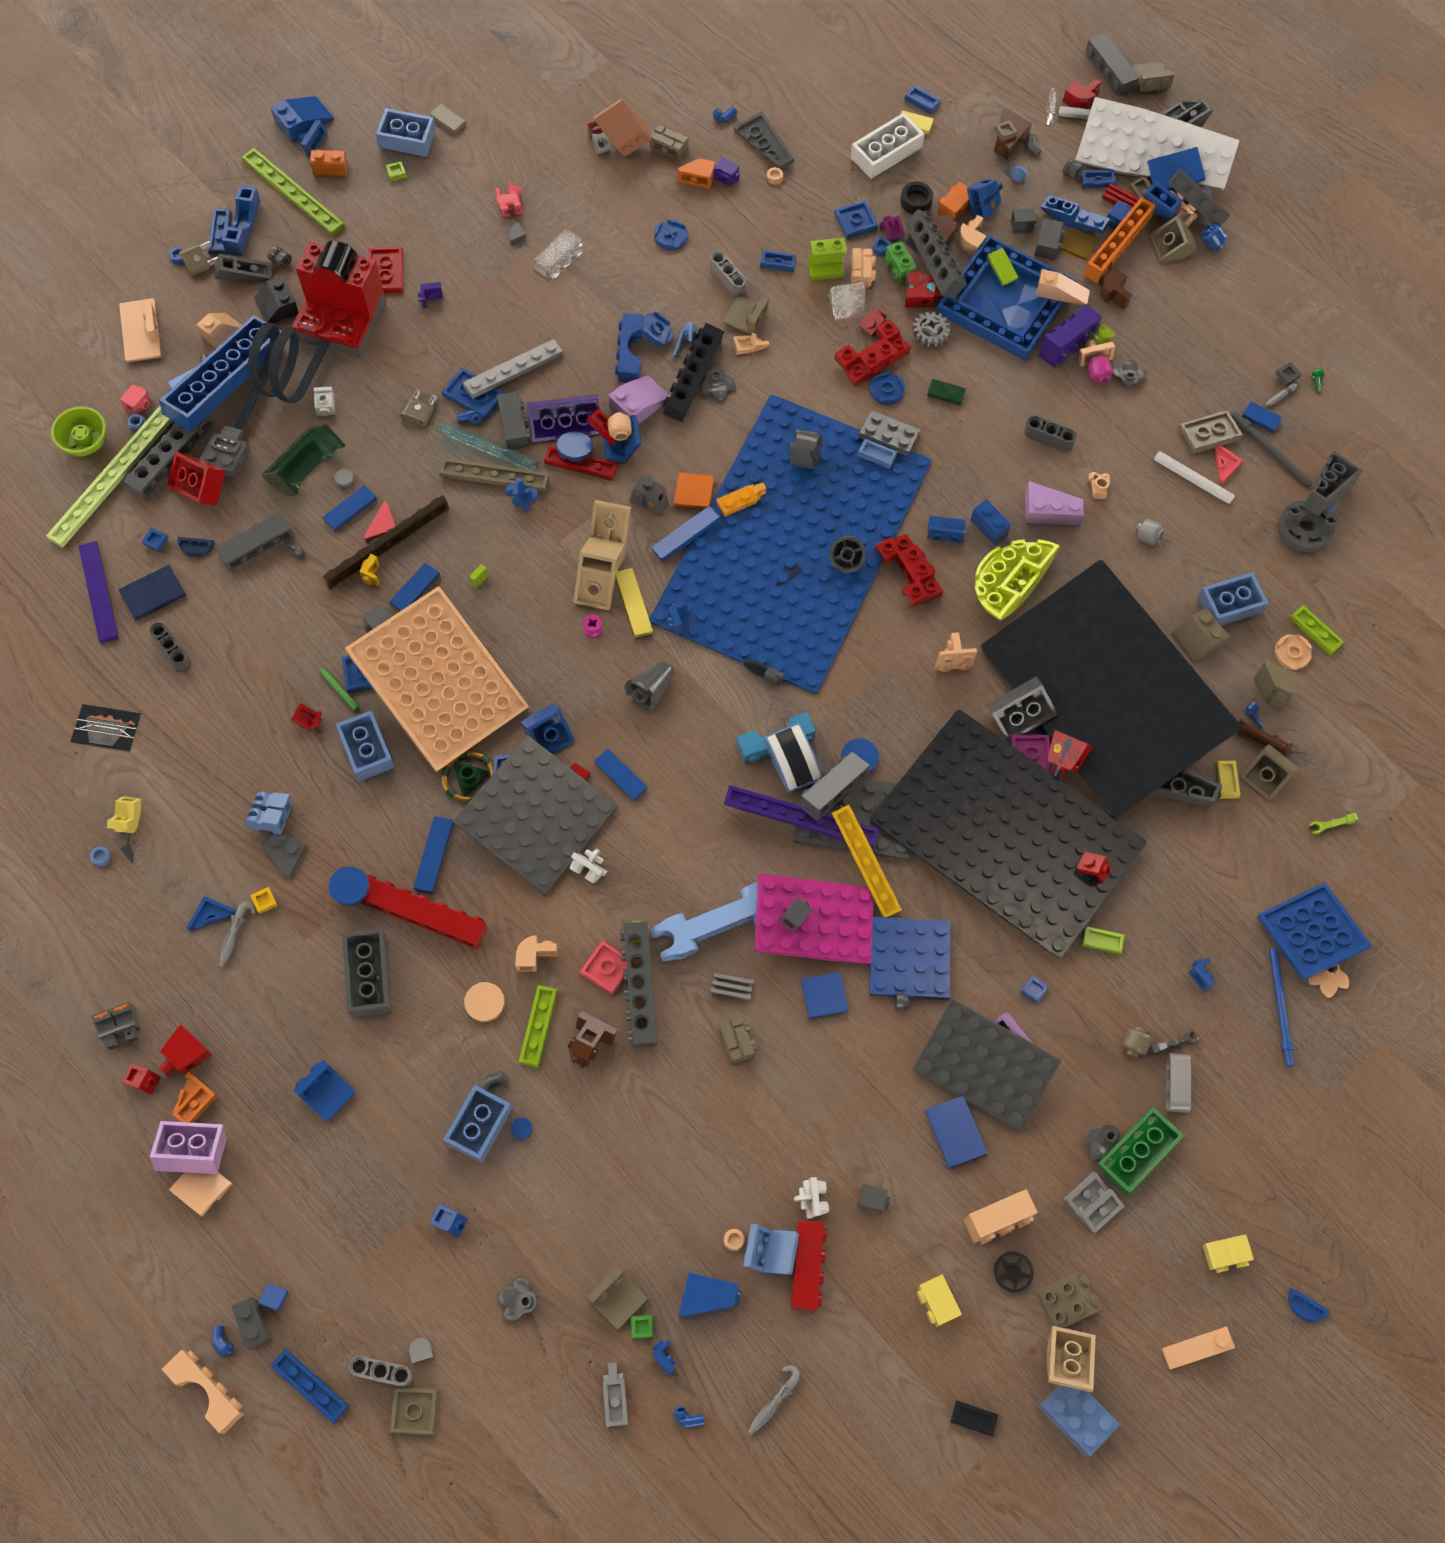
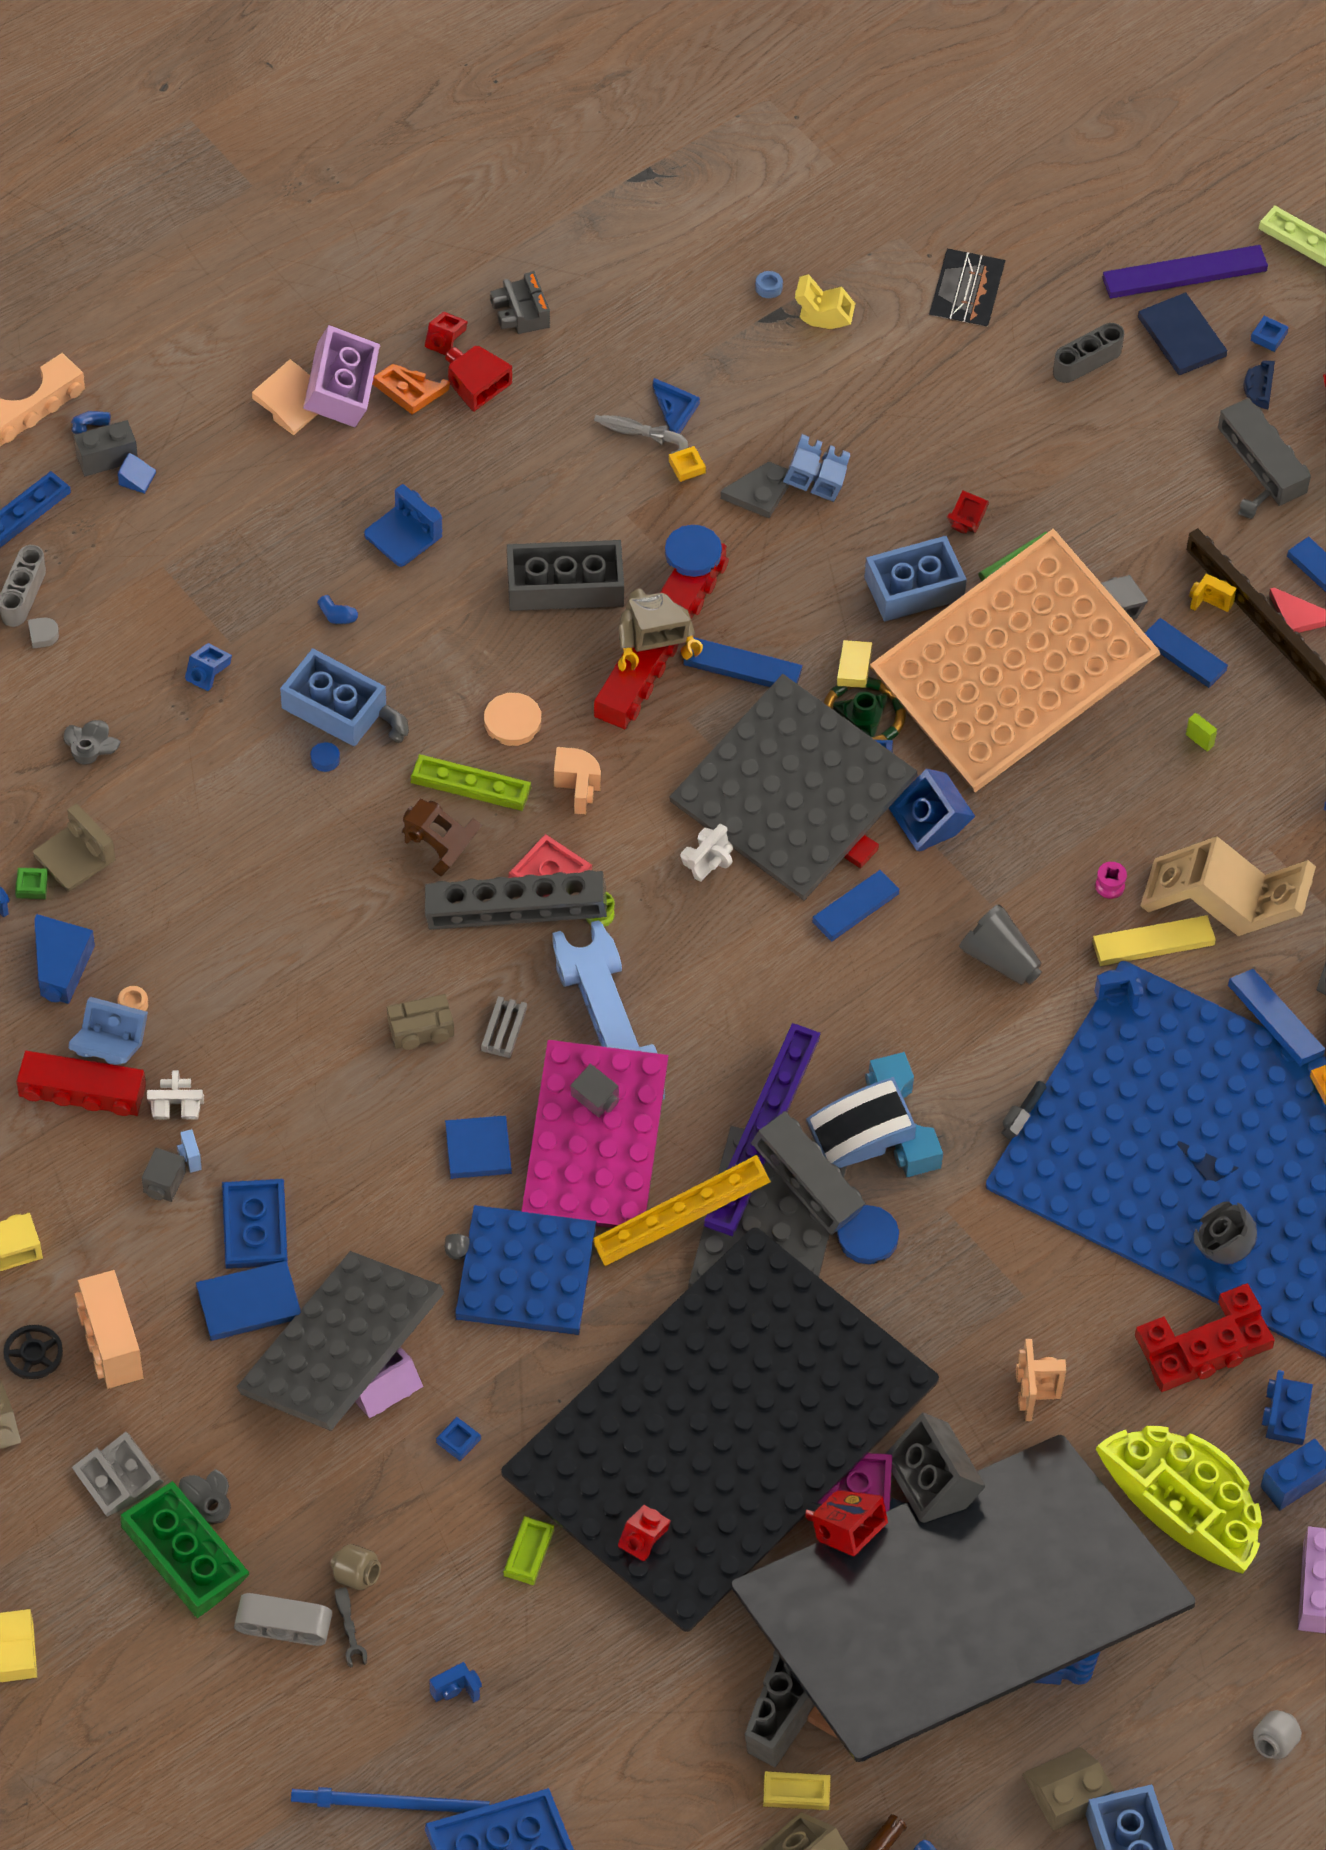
camera: 95 degrees right, 10 degrees down
(399, 1132) = (337, 613): none -> blue arm
(418, 907) = (654, 623): none -> dark tan torso
(433, 782) = (854, 664): none -> light yellow tile
(852, 1183) = (189, 1151): none -> light blue plate
(897, 1134) = (254, 1223): none -> blue tile

